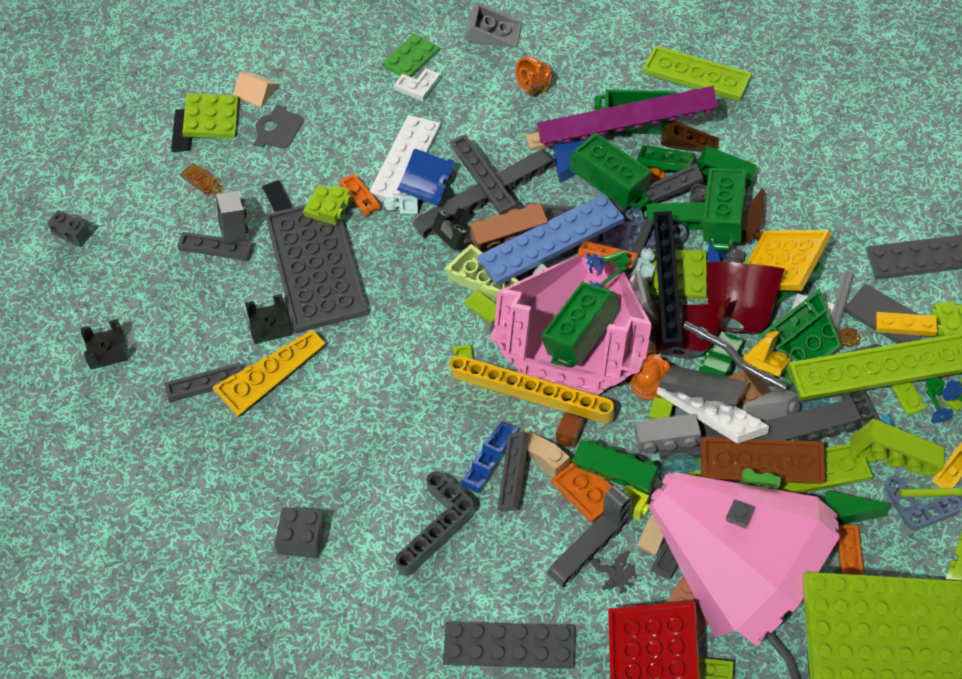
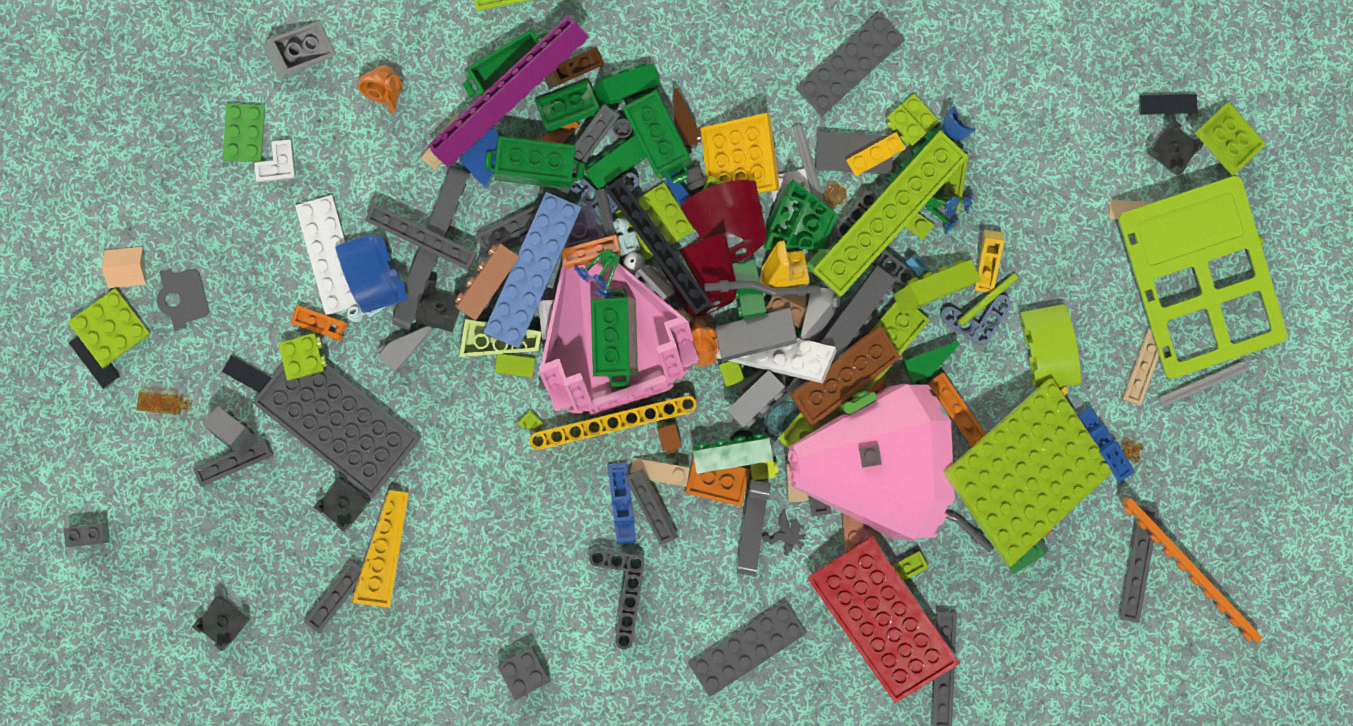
camera: 45 degrees left, 30 degrees up
(406, 244) = (400, 350): none -> light grey slope

